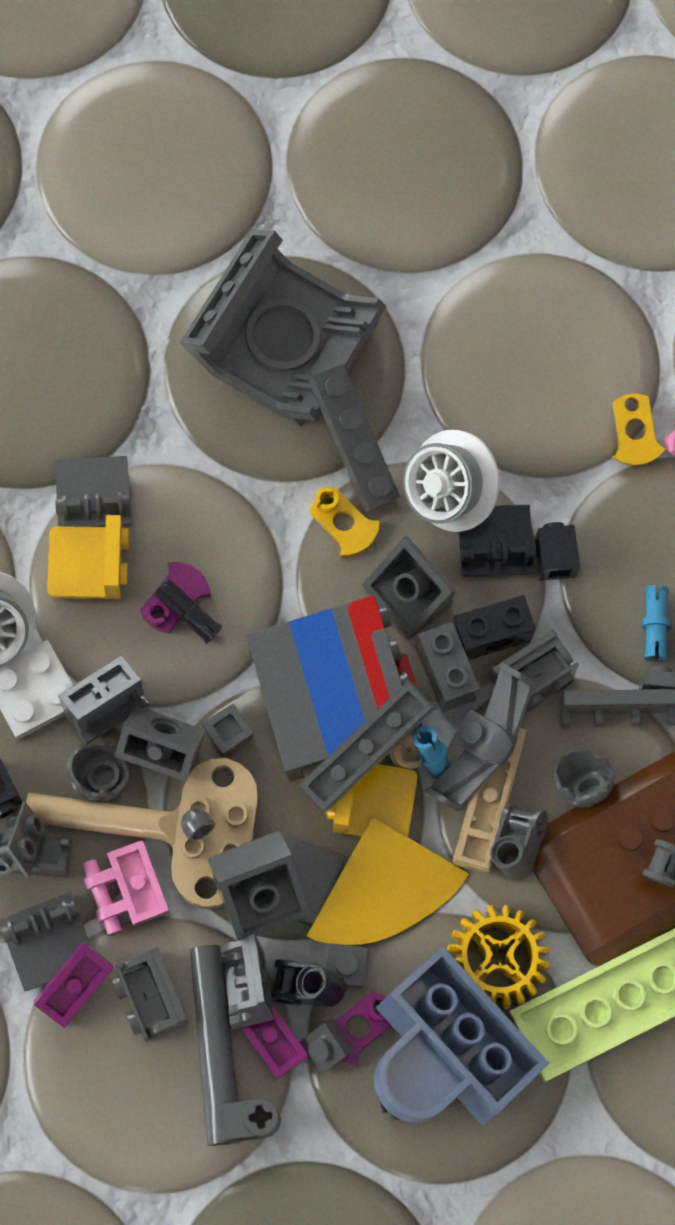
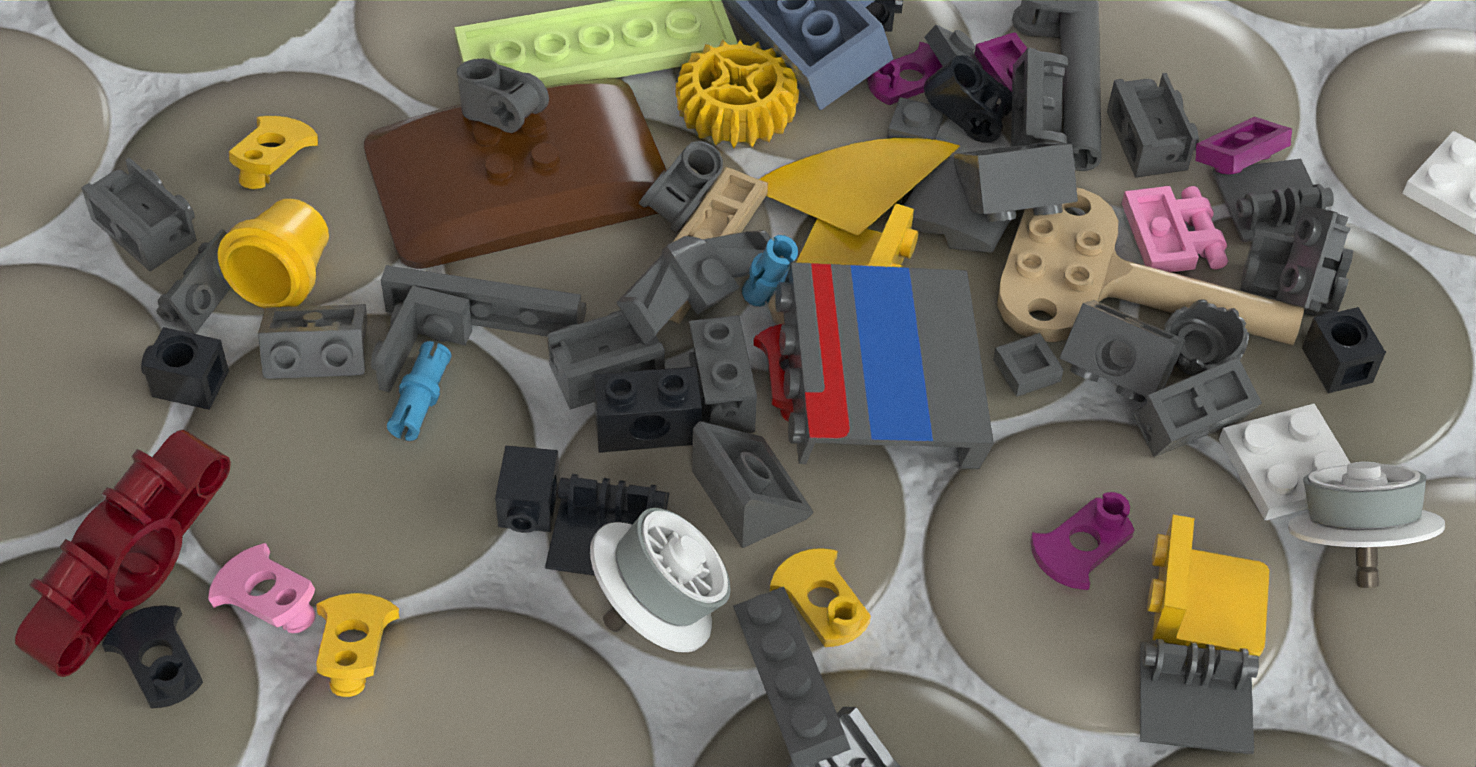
camera: 165 degrees left, 20 degrees down
(187, 610) = (1068, 500): black axle -> none
(196, 824) = (1084, 243): dark grey hinge -> none
(366, 747) = (857, 257): dark grey tile -> none
(583, 778) = (579, 229): dark grey hair -> none

